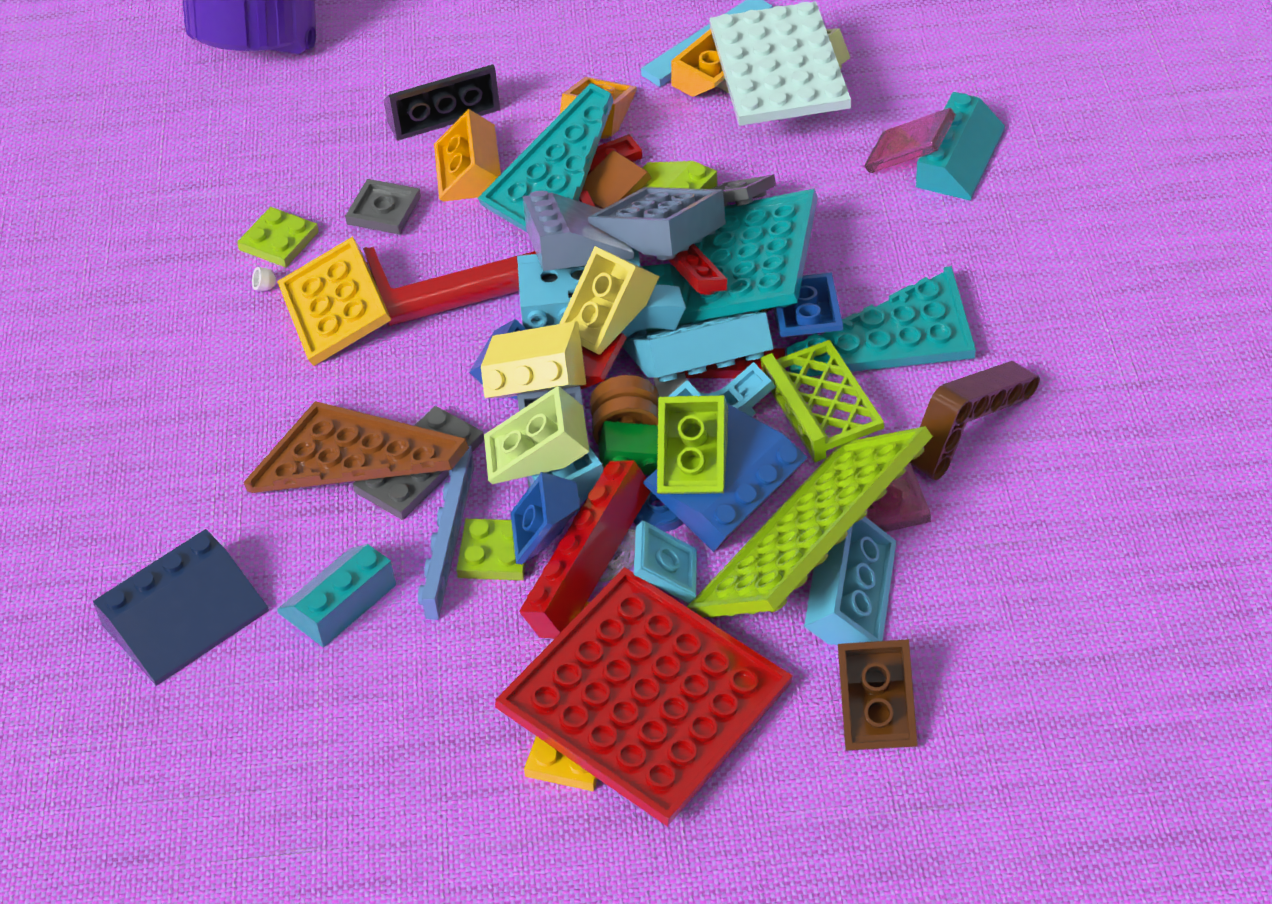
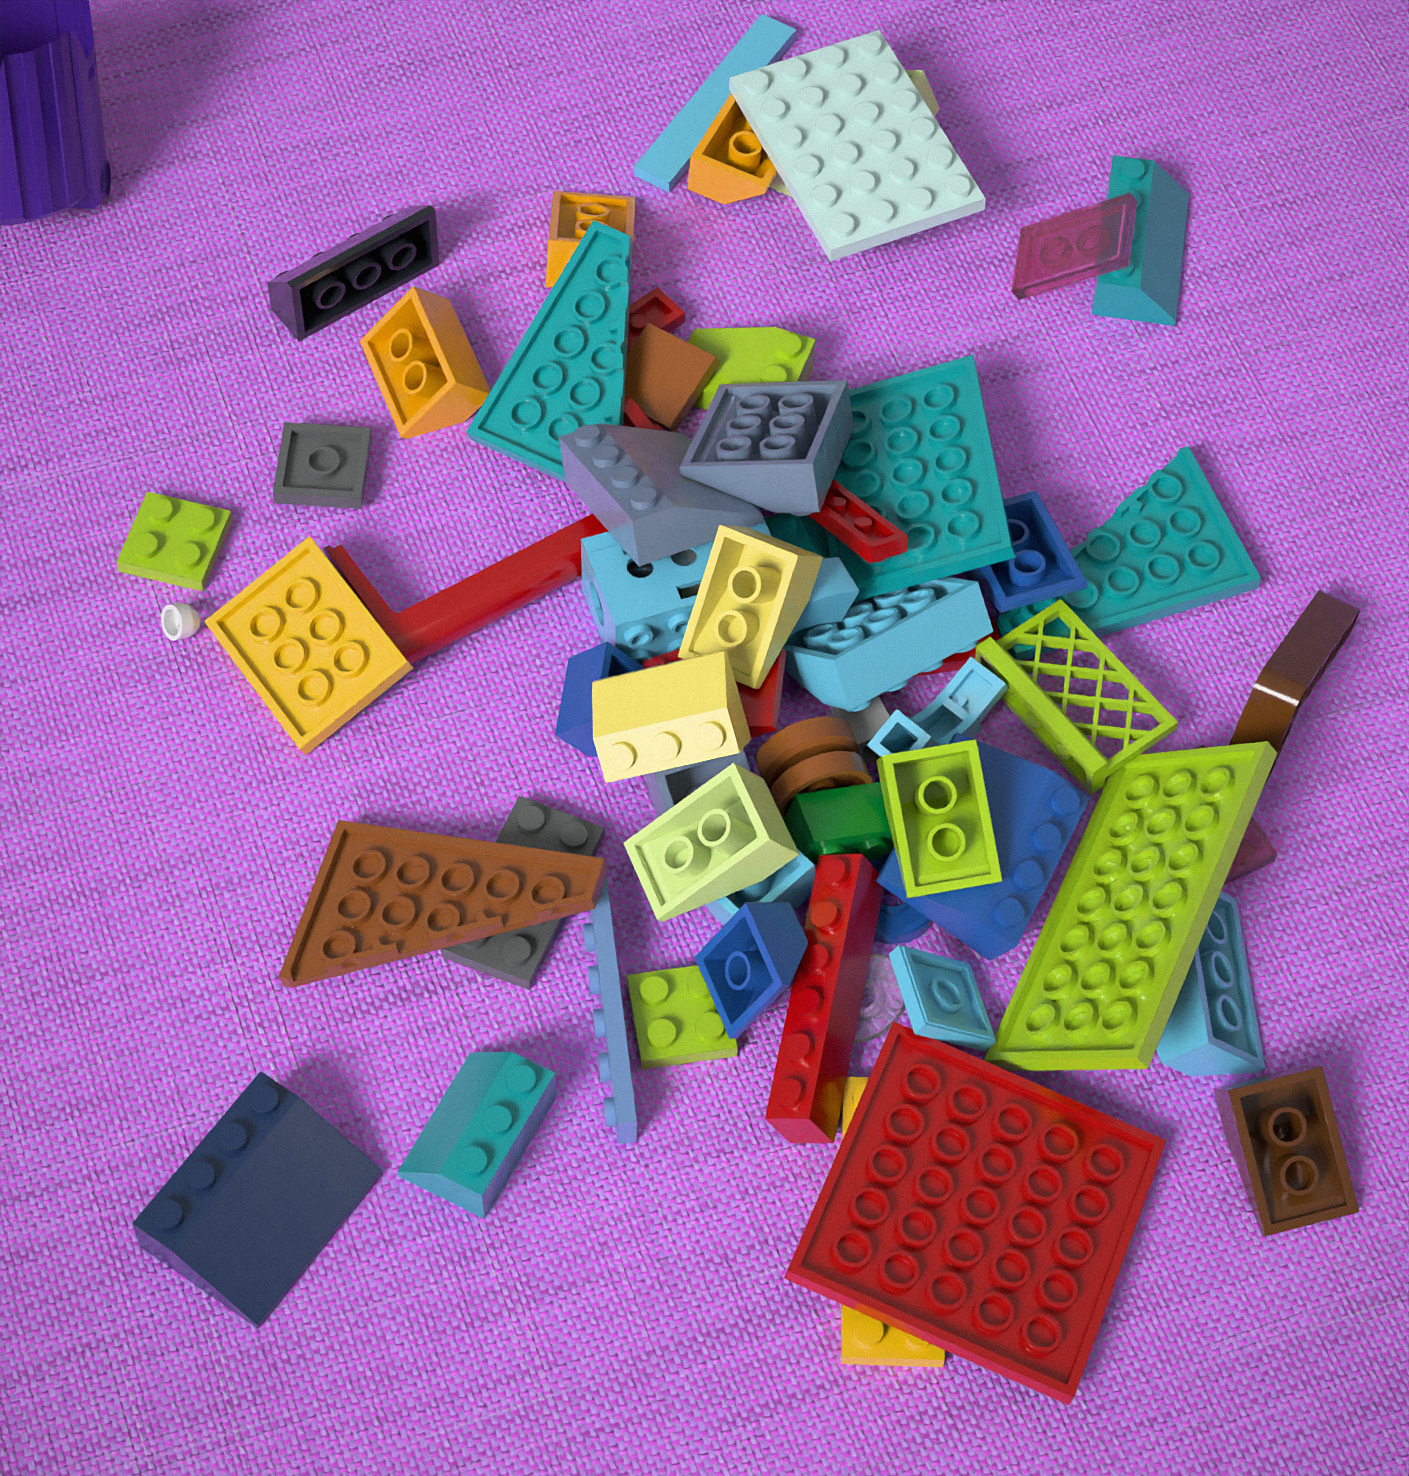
camera: 20 degrees left, 10 degrees up
(745, 190) = (863, 363): dark grey plate -> none

